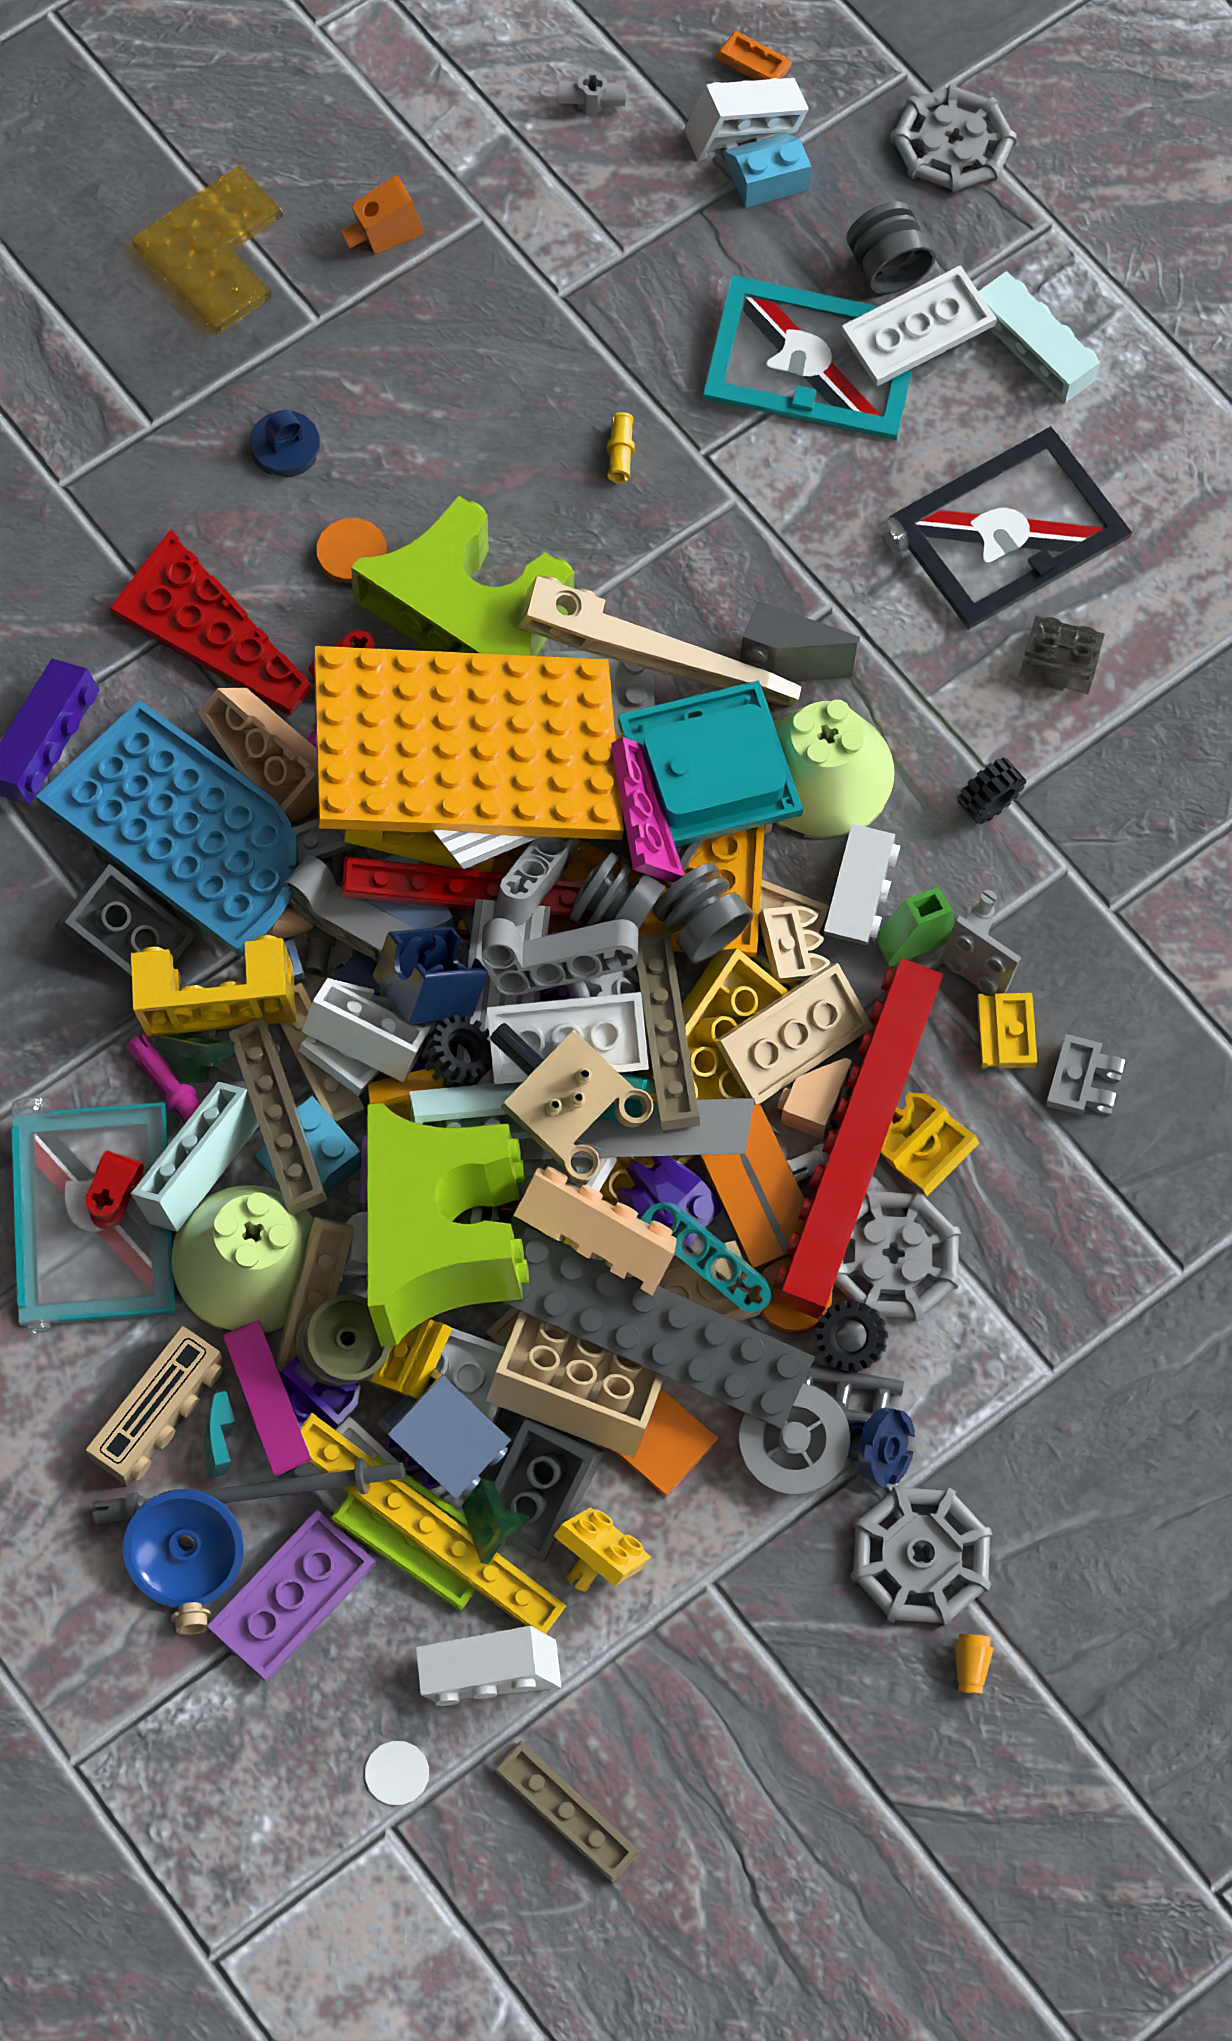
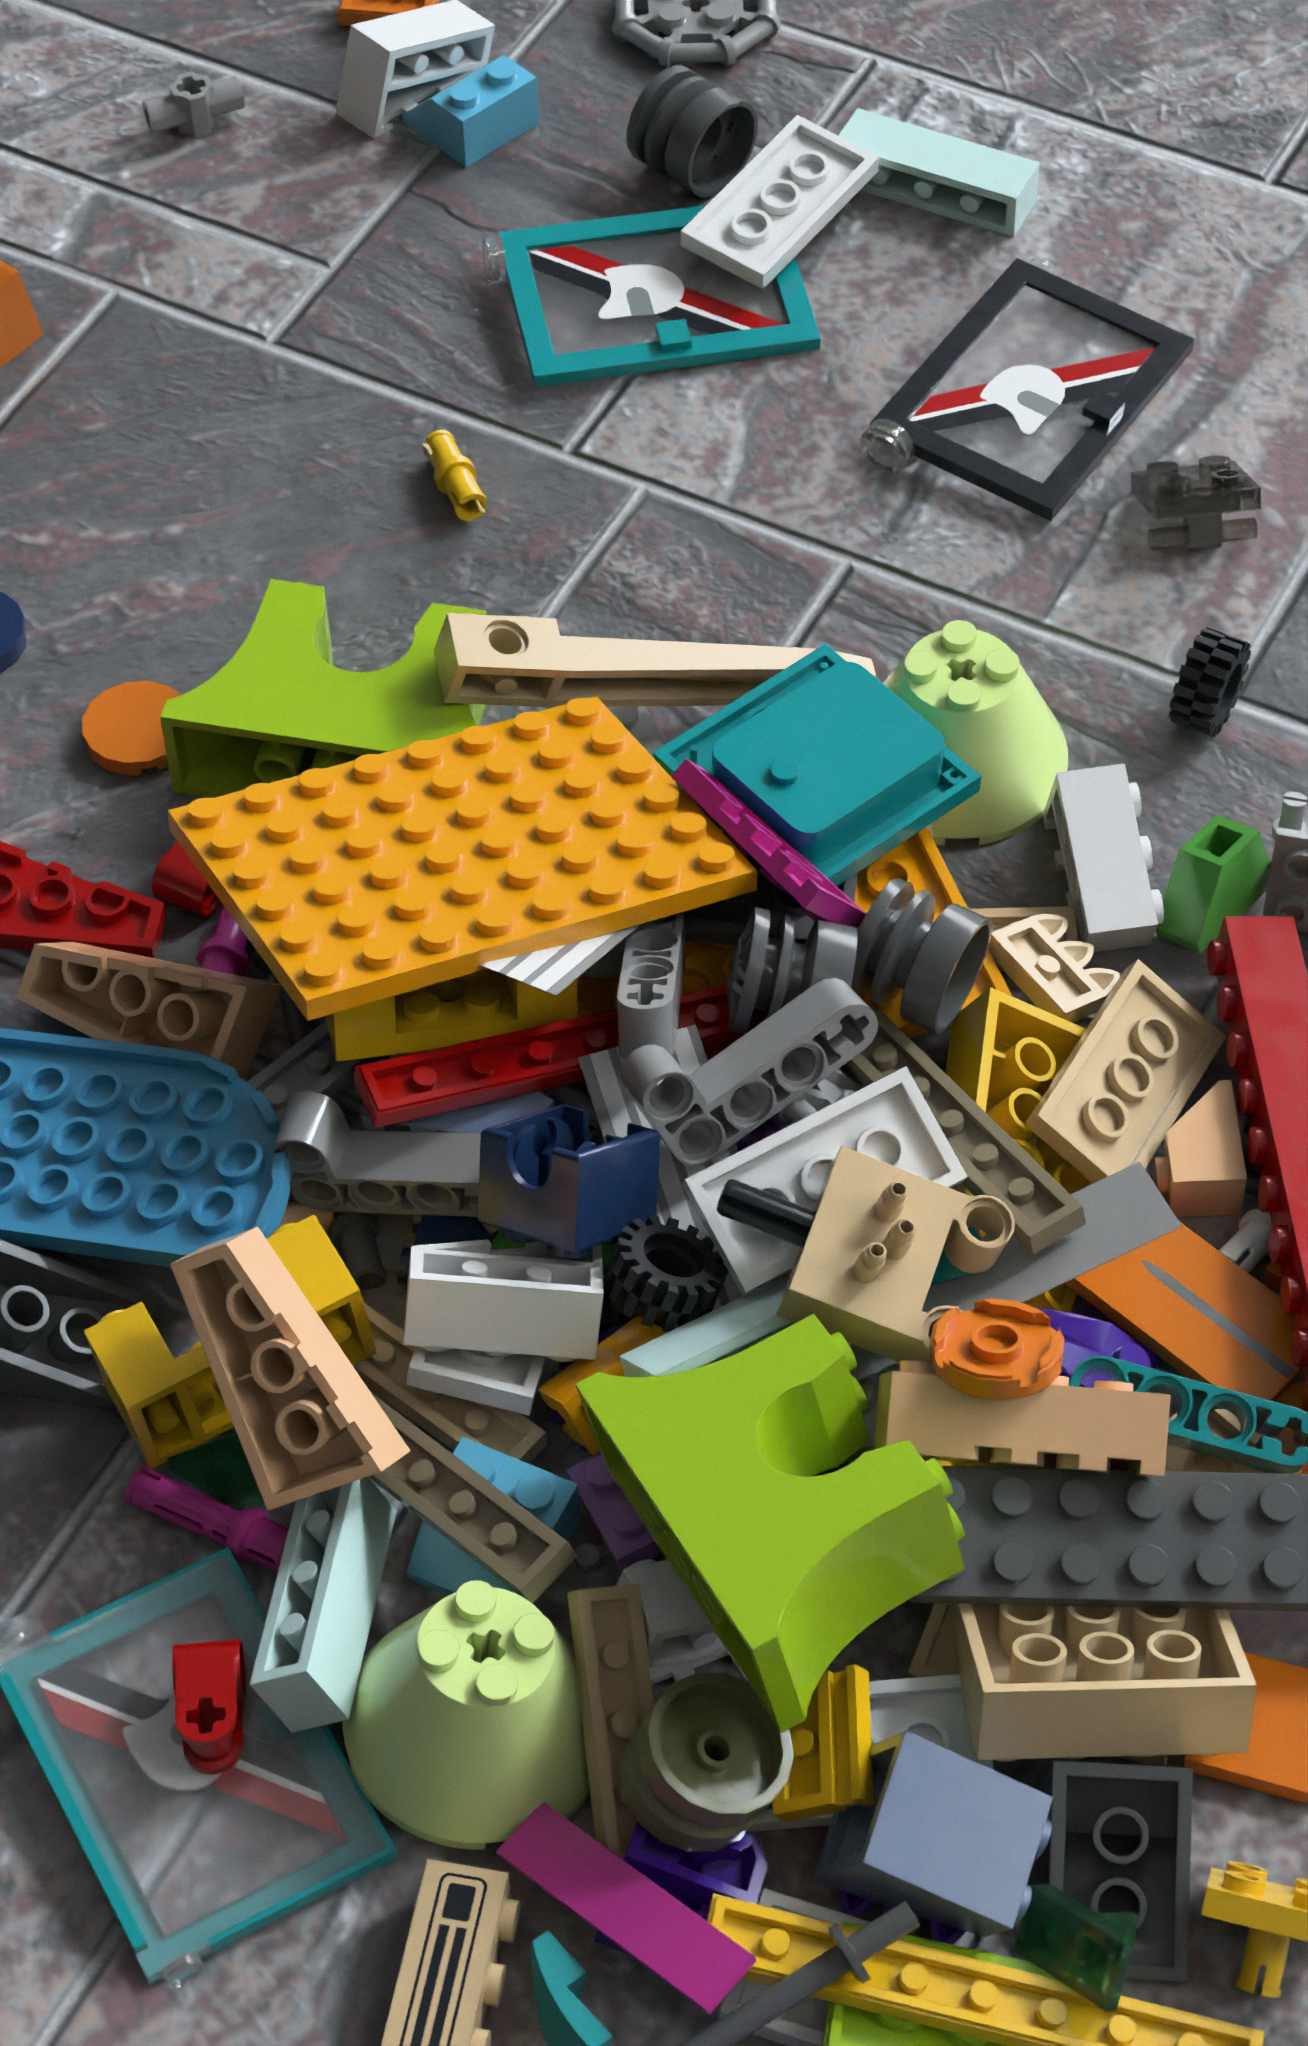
camera: 20 degrees left, 15 degrees down
(218, 1029) = (282, 1373): none -> light nougat wedge
(597, 1186) = (996, 1349): none -> orange tile
(797, 646) = (847, 600): dark grey slope -> none

